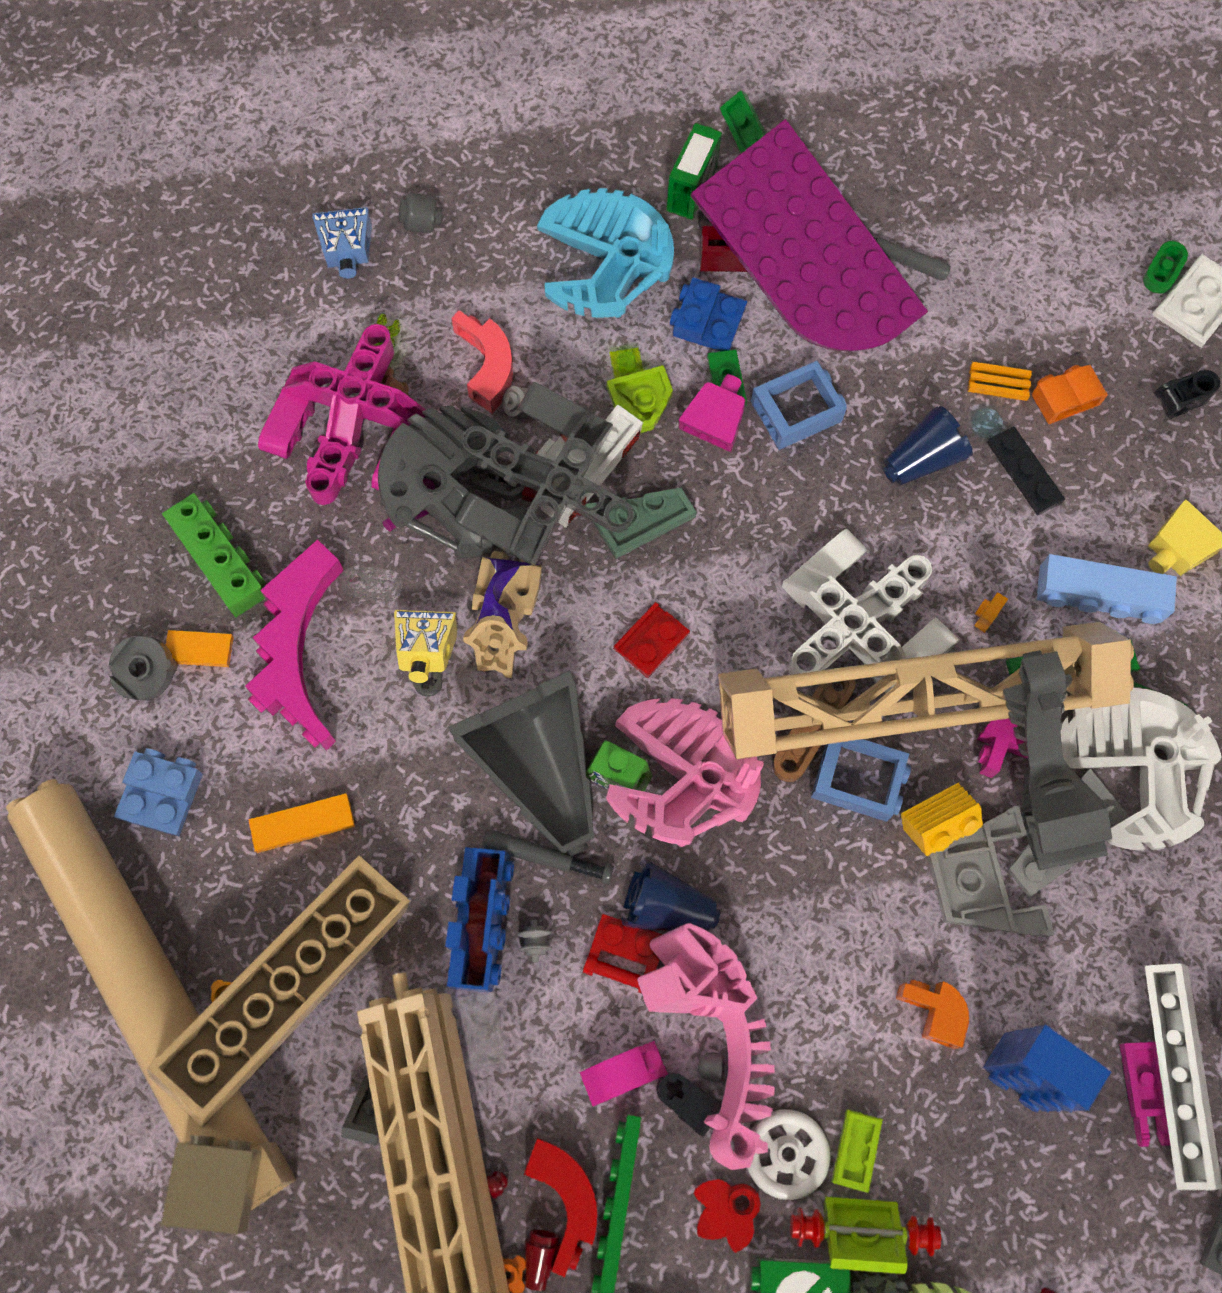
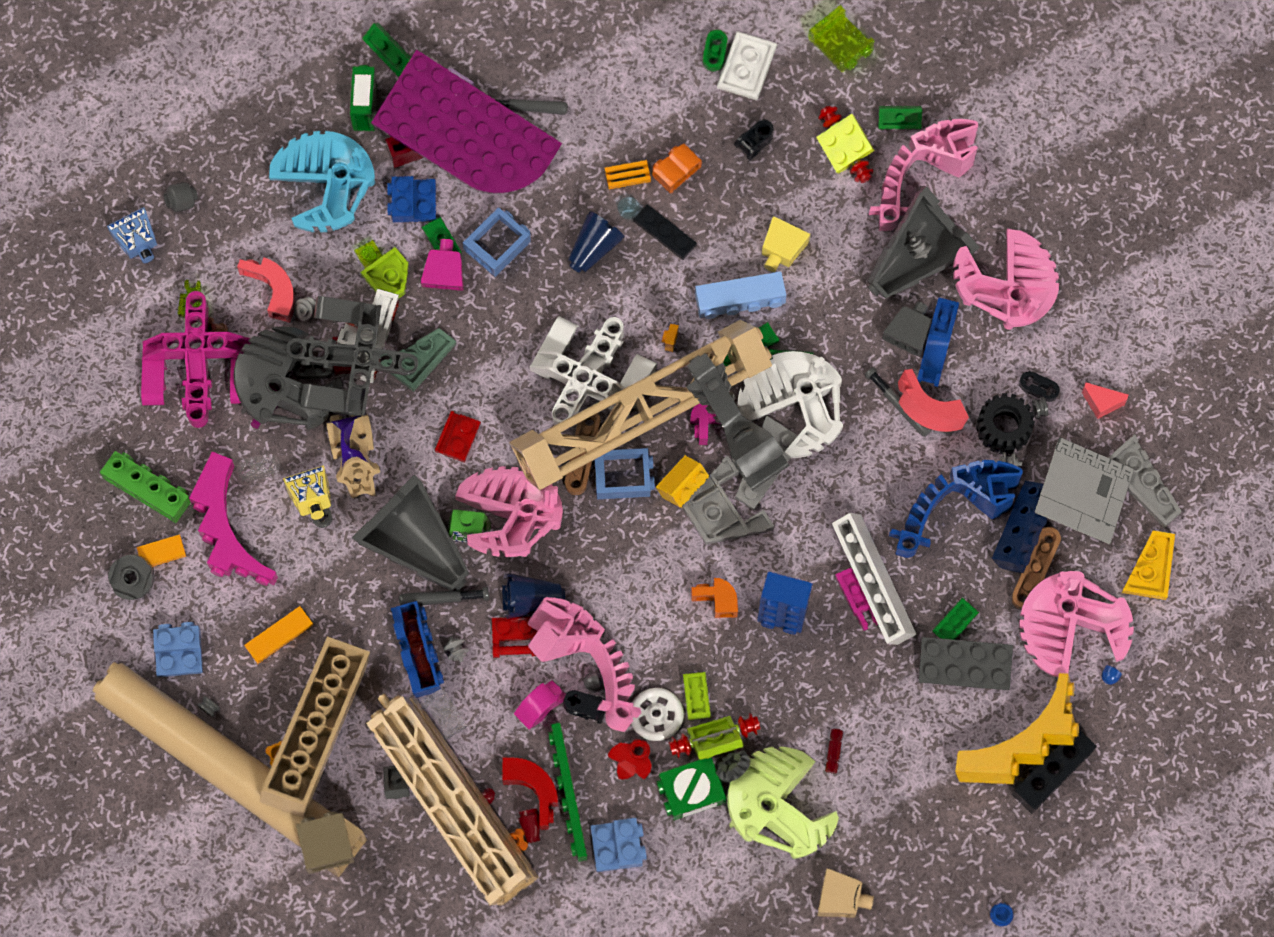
camera: 20 degrees left, 0 degrees up
(161, 889) = (208, 706): none -> dark grey bush

